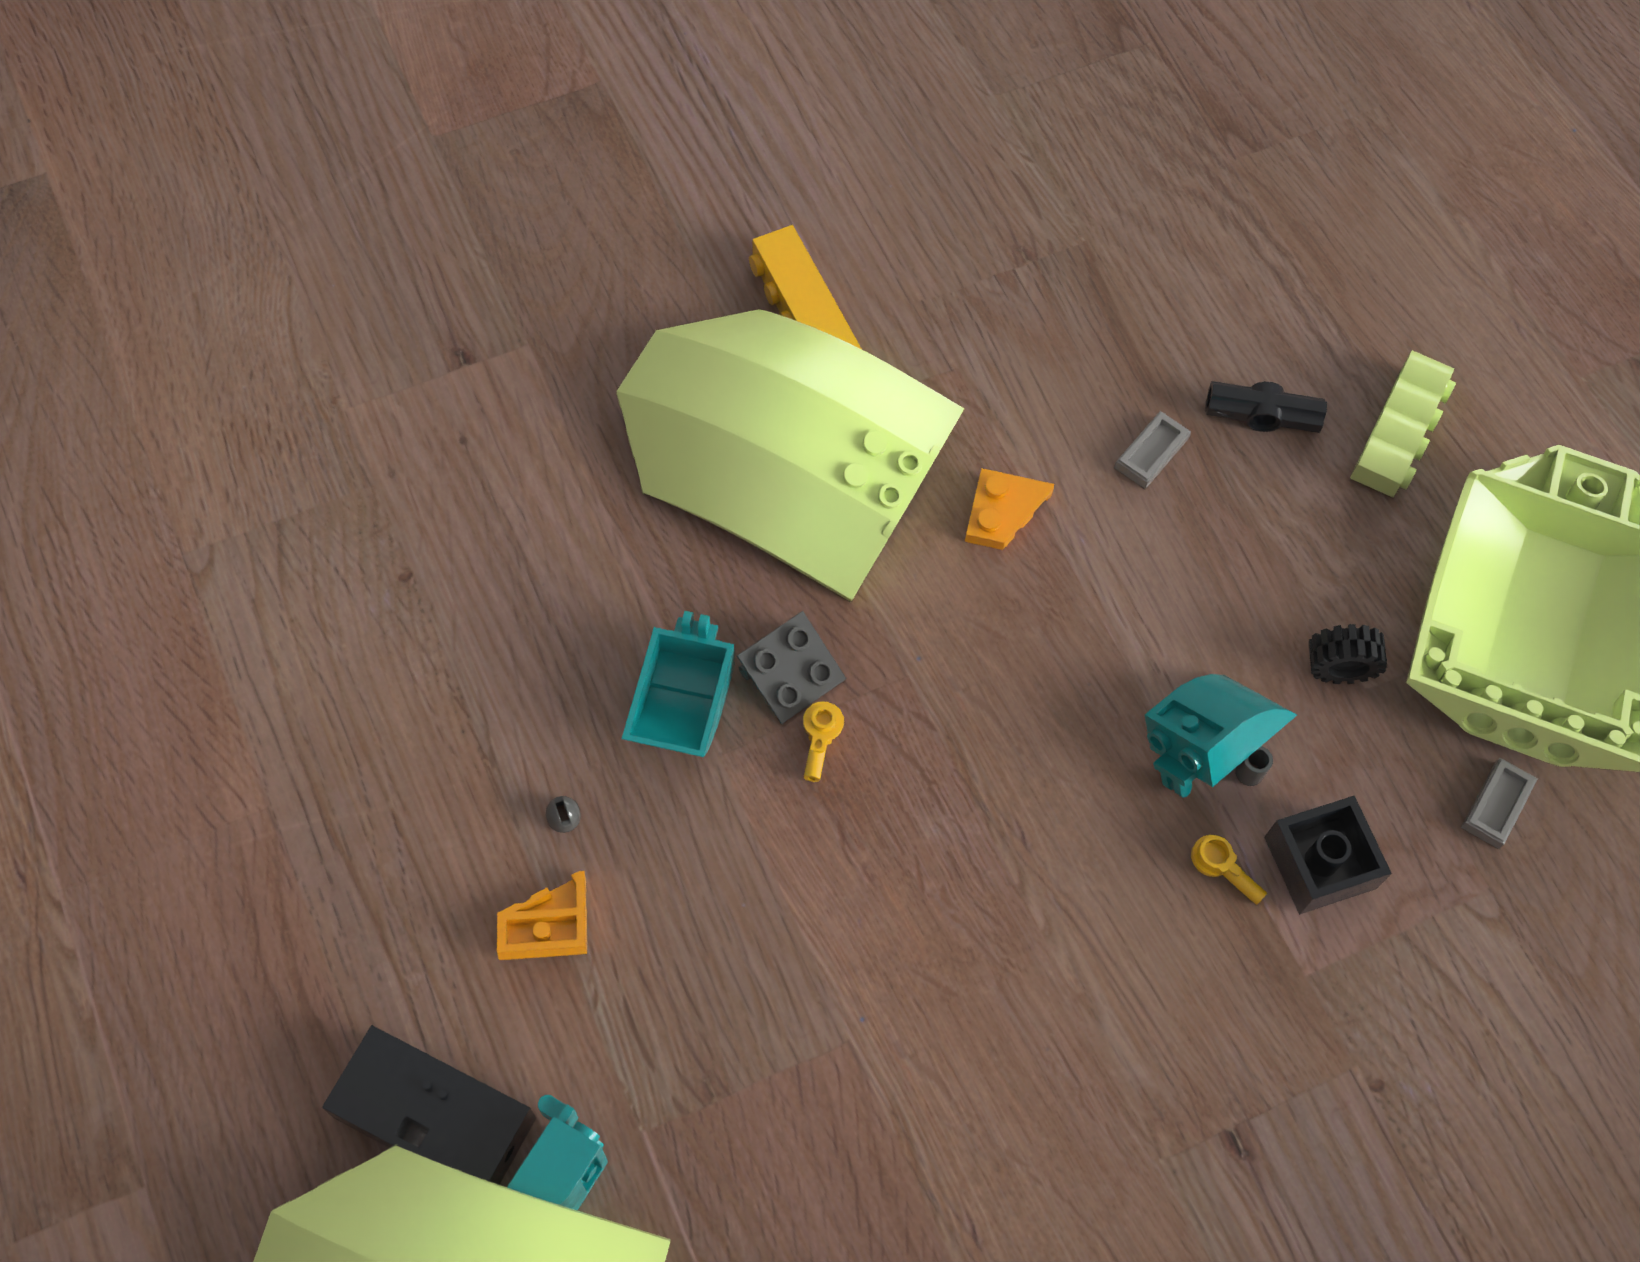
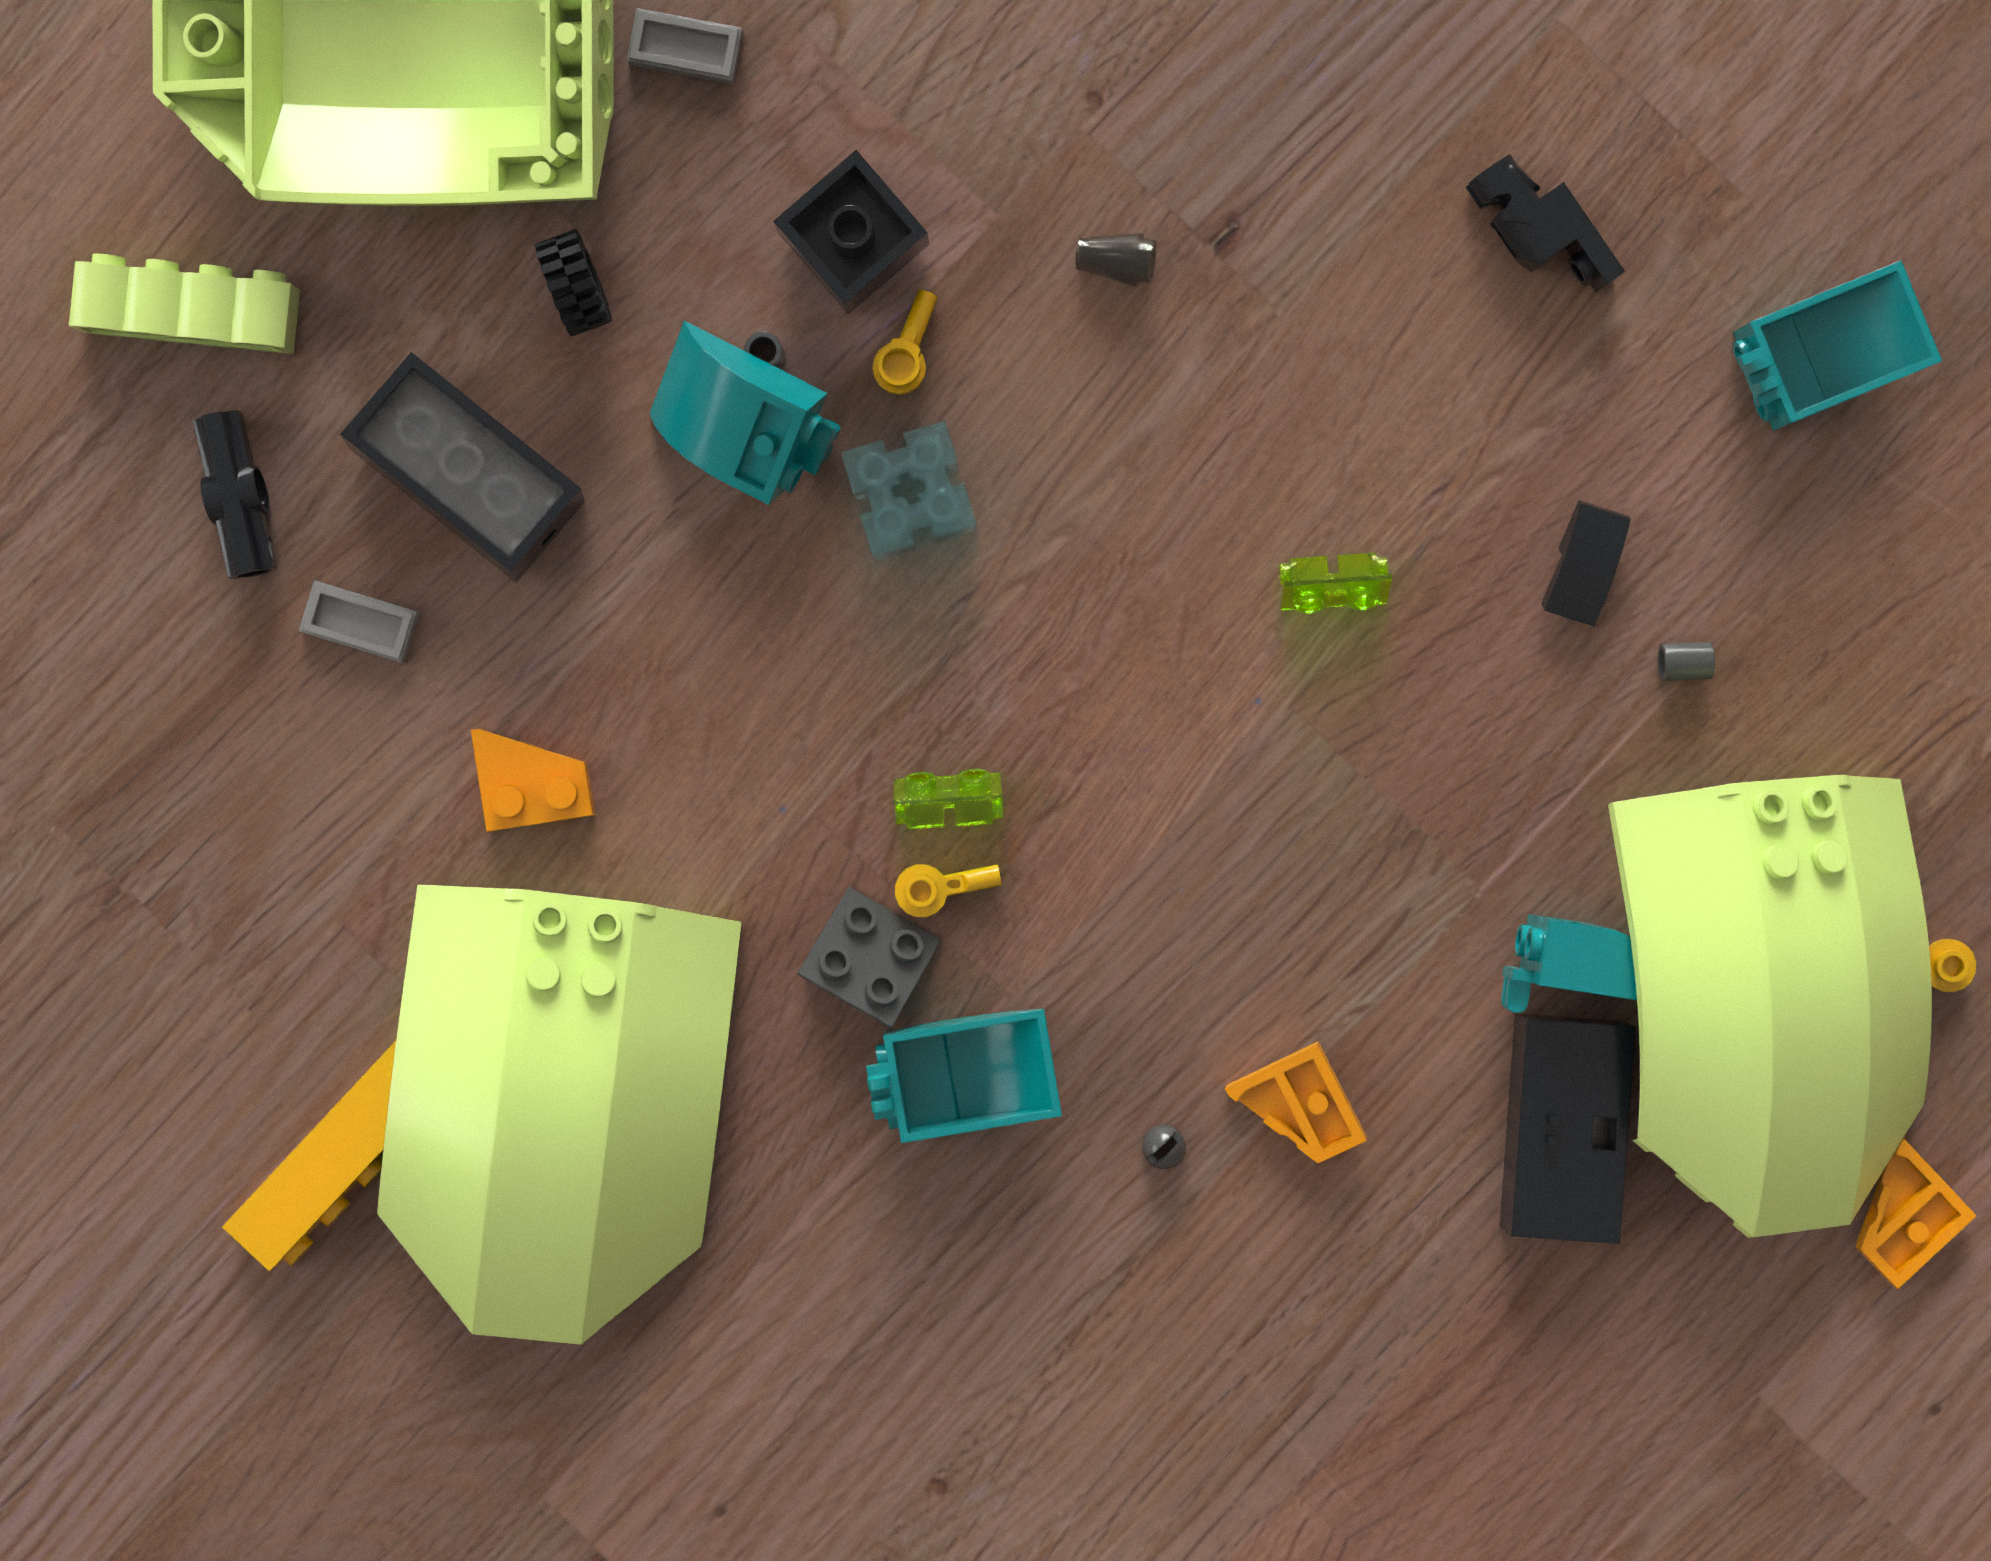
camera: 110 degrees left, 25 degrees up
(888, 747) = (972, 794): none -> clear neon green hinge
(936, 1091) = (1309, 587): none -> clear neon green hinge
(1098, 806) = (926, 462): none -> clear light blue brick
(1237, 541) = (463, 467): none -> clear brick
(1245, 1049) = (1118, 257): none -> clear smoke cone

